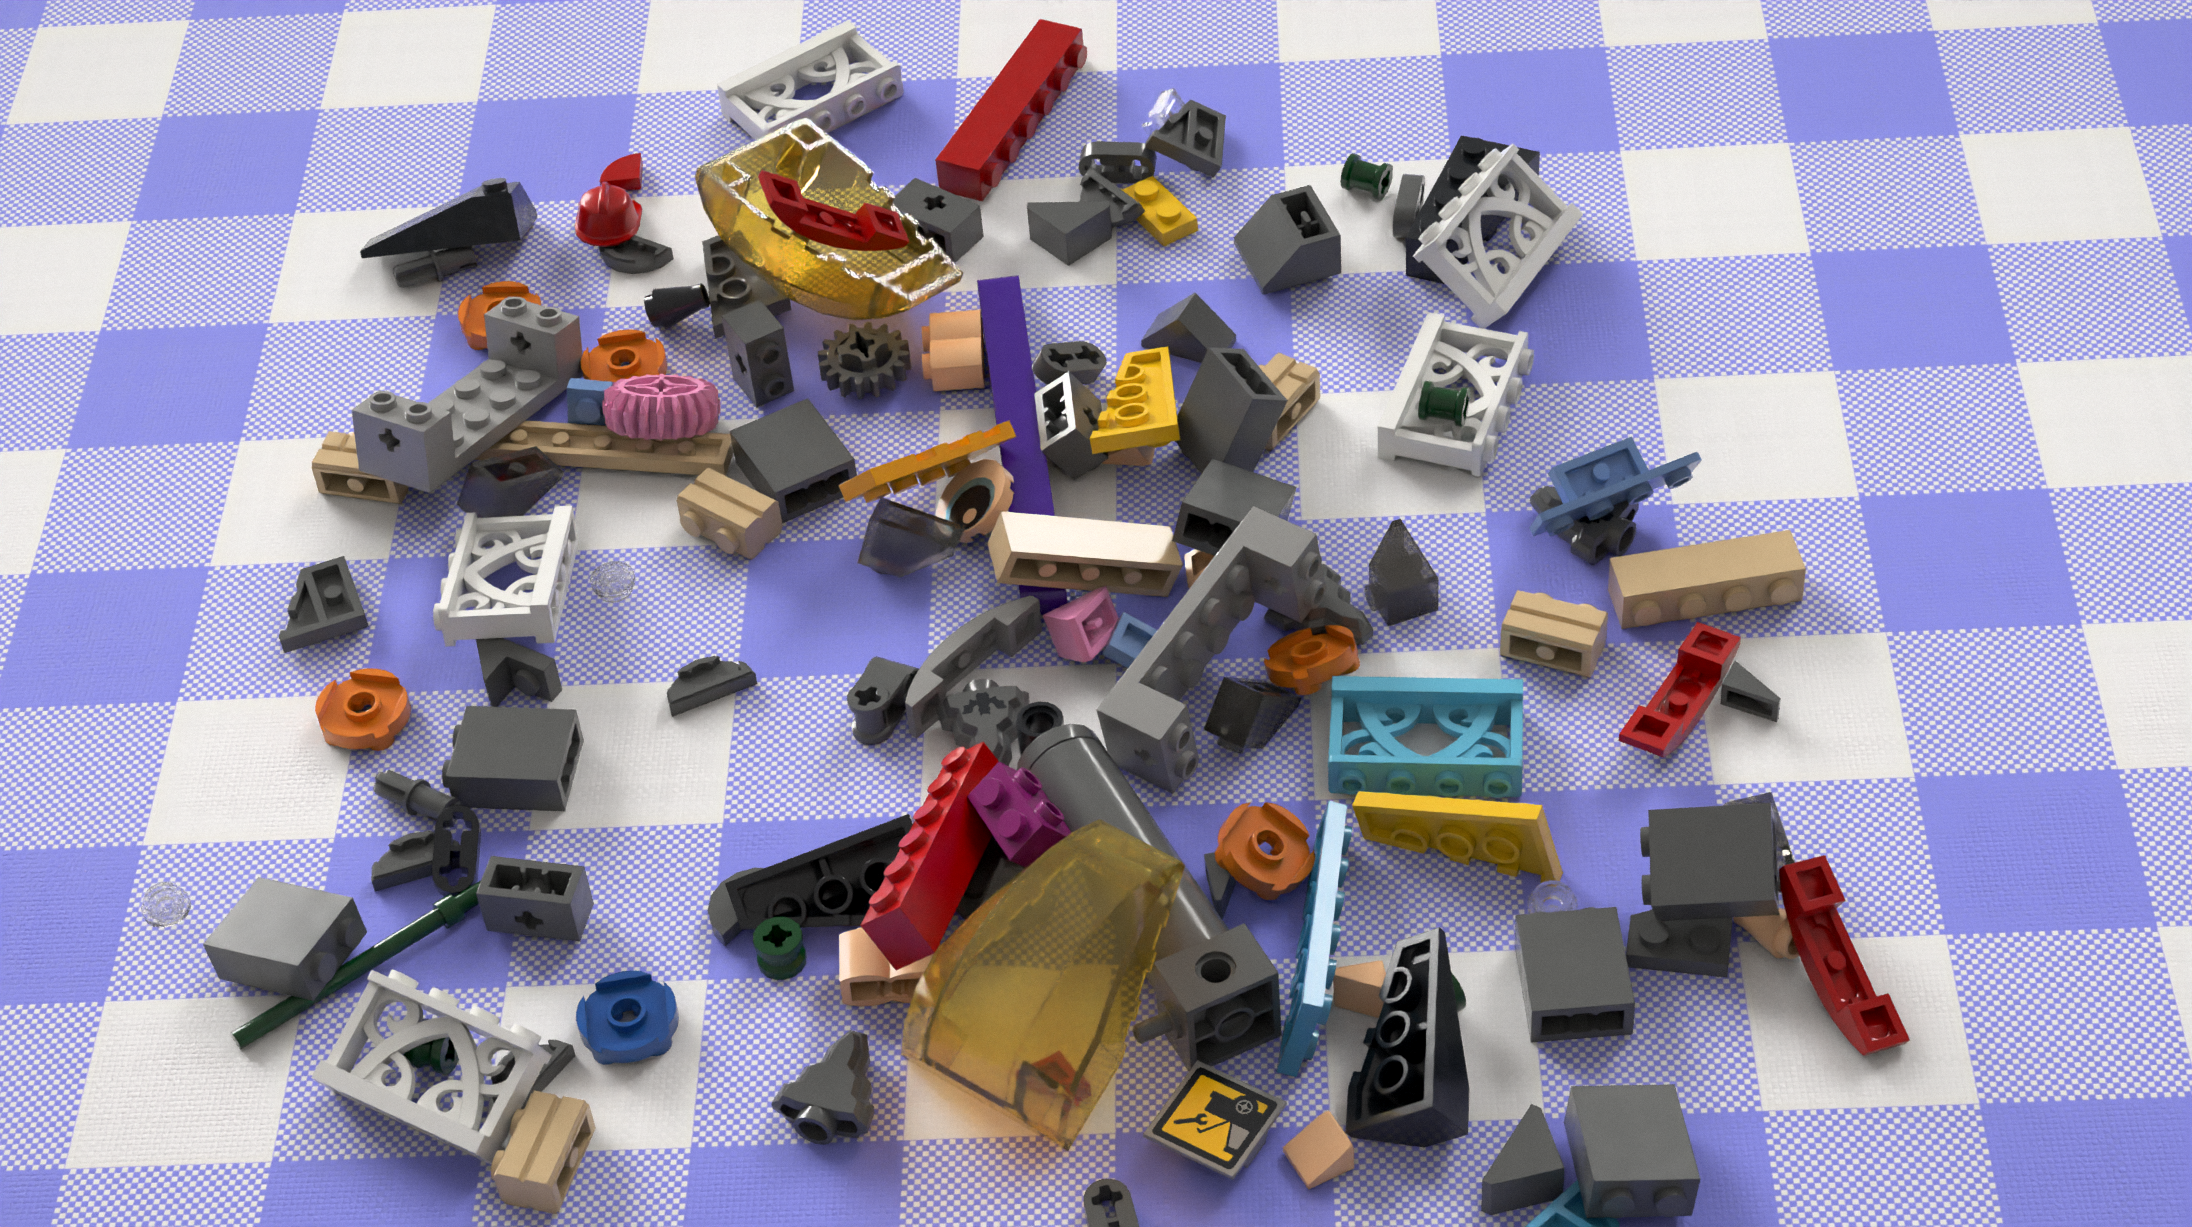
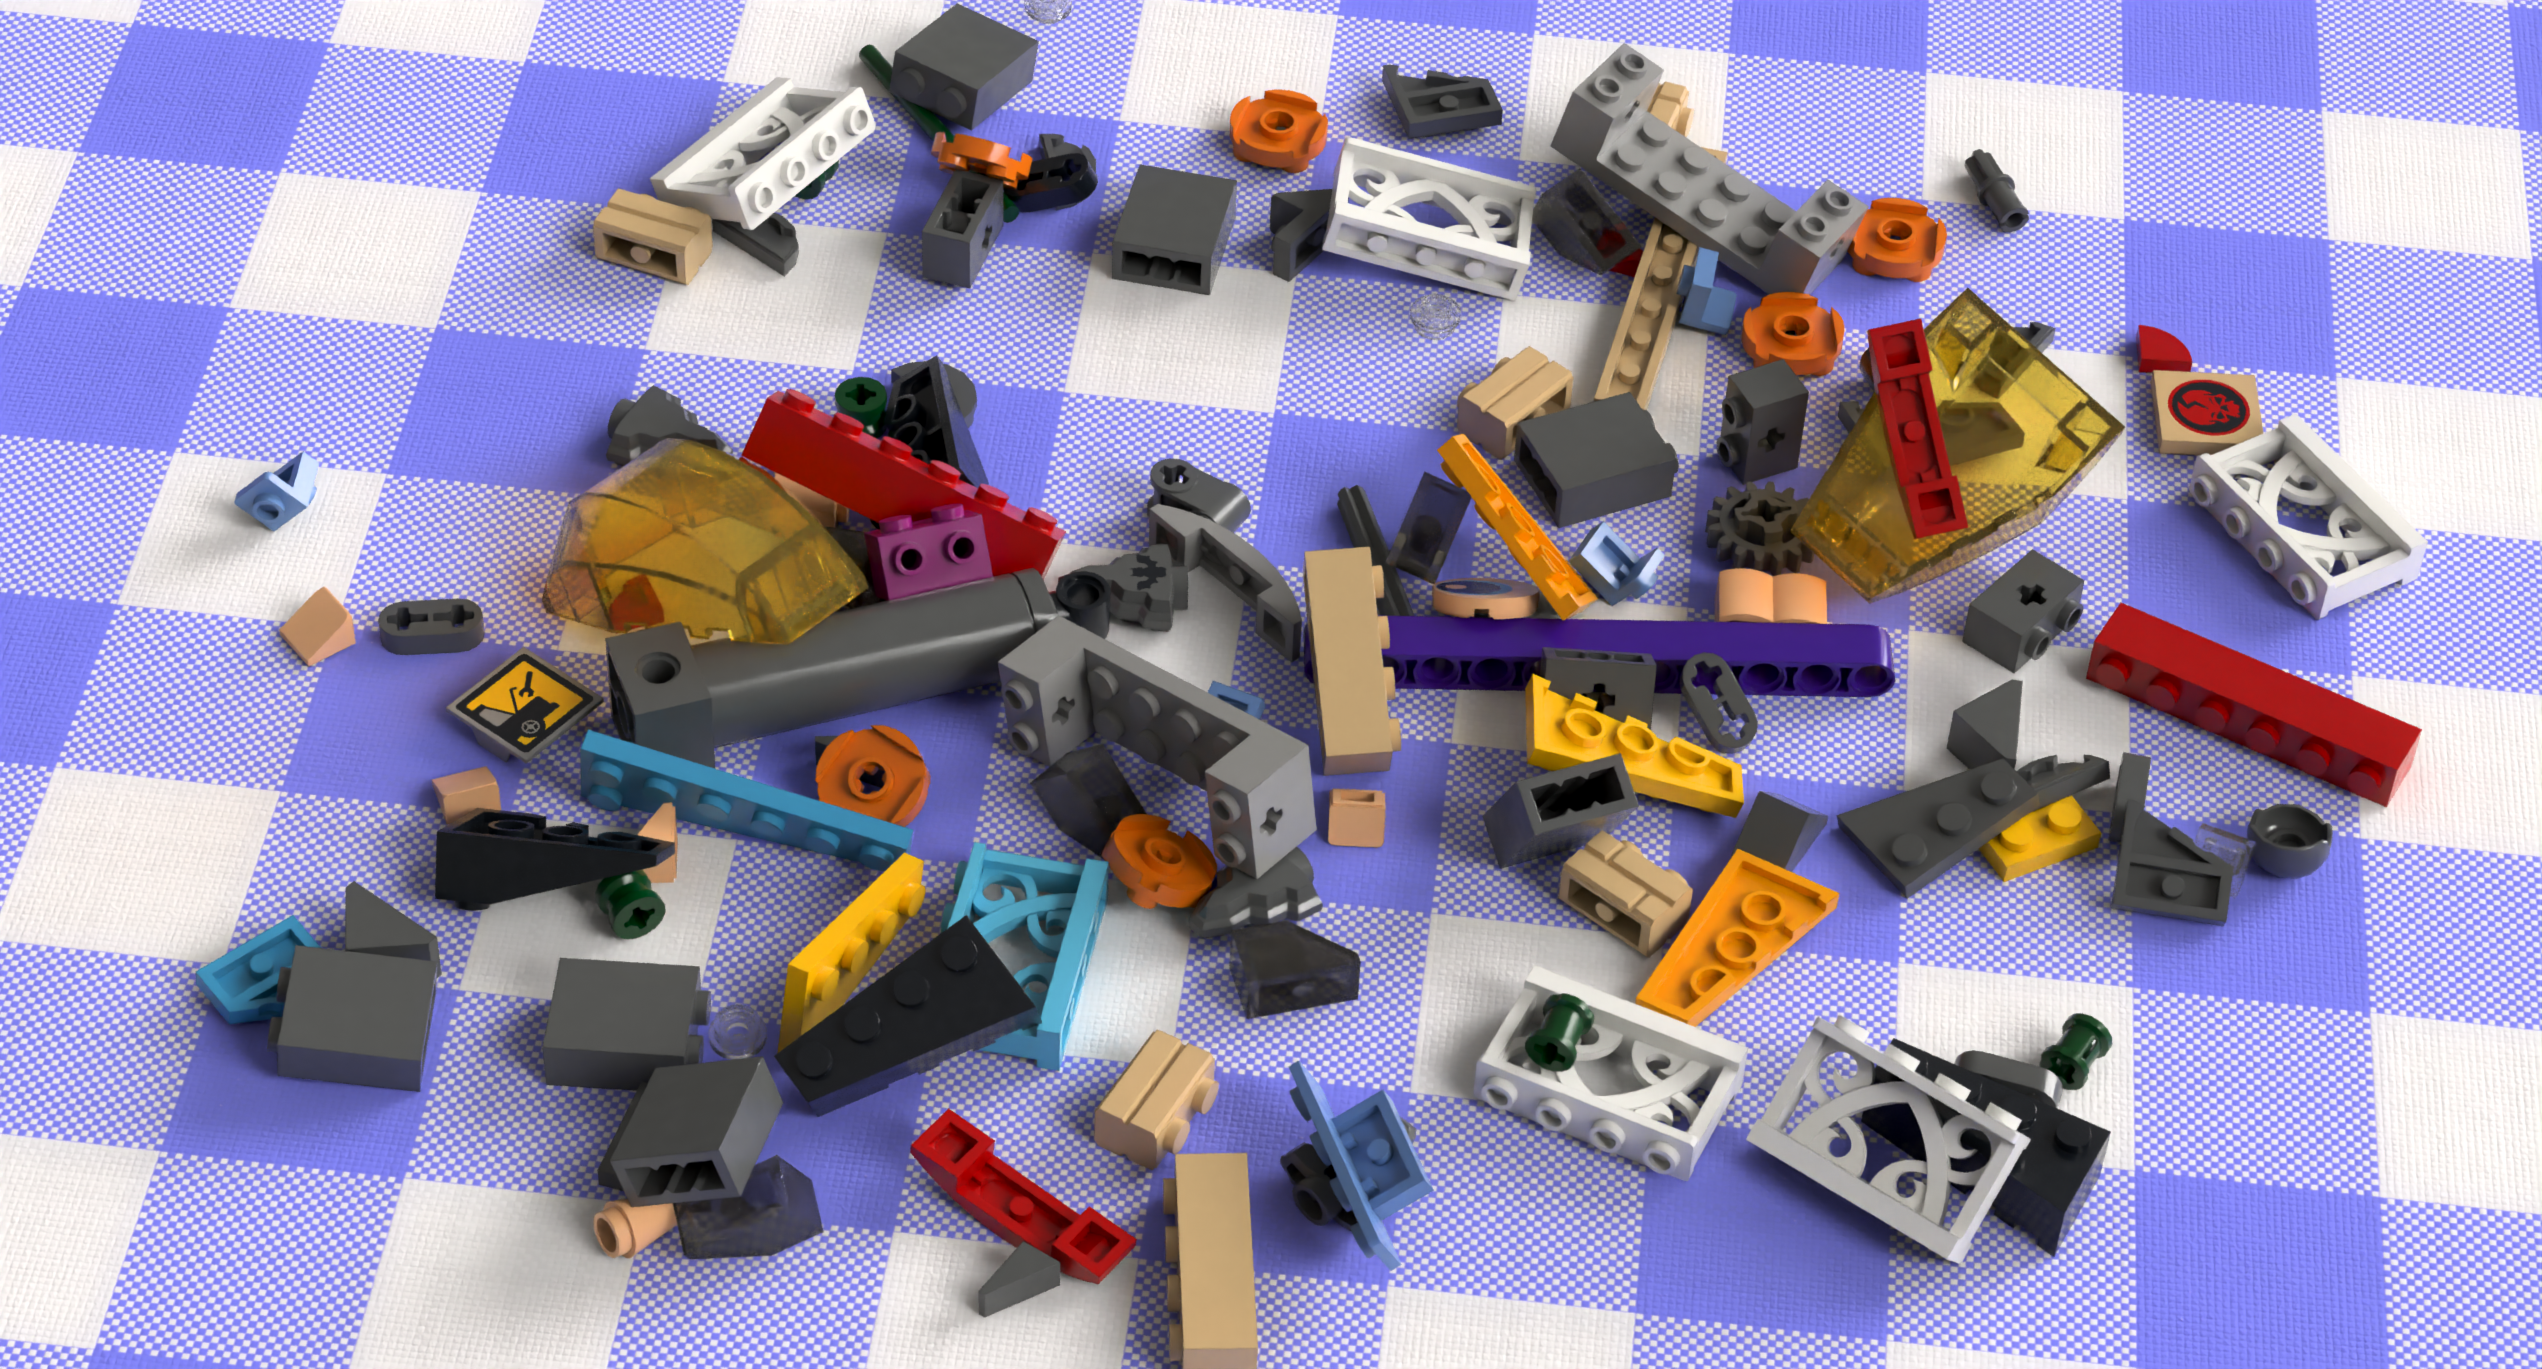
camera: 90 degrees right, 0 degrees up
(413, 795) = (1159, 154): dark grey axle -> none
(462, 877) = (980, 156): none -> orange plate
(479, 217) = (2045, 203): black wedge -> none
(607, 216) = (2068, 325): red piece -> none
(633, 1040) = (788, 319): blue plate -> none
(661, 407) = (1681, 339): bright pink gear -> none
(689, 143) = (2204, 411): none -> tile
(706, 682) = (1266, 383): dark grey tile -> none
(918, 586) = (1366, 533): none -> dark grey axle
(924, 429) = (1614, 566): none -> medium blue bracket
(1083, 625) = (1253, 663): bright pink slope -> none
(1143, 83) = (2289, 840): none -> dark grey hair
(1169, 248) = (1938, 824): none -> dark grey wing
(1223, 500) = (1402, 810): dark grey brick -> none
(1290, 241) = (1931, 950): dark grey slope -> none
(1340, 361) = (1733, 936): none -> light orange wing
(1552, 759) = (910, 1020): none -> black wedge
(1831, 960) = (554, 1258): red slope -> none

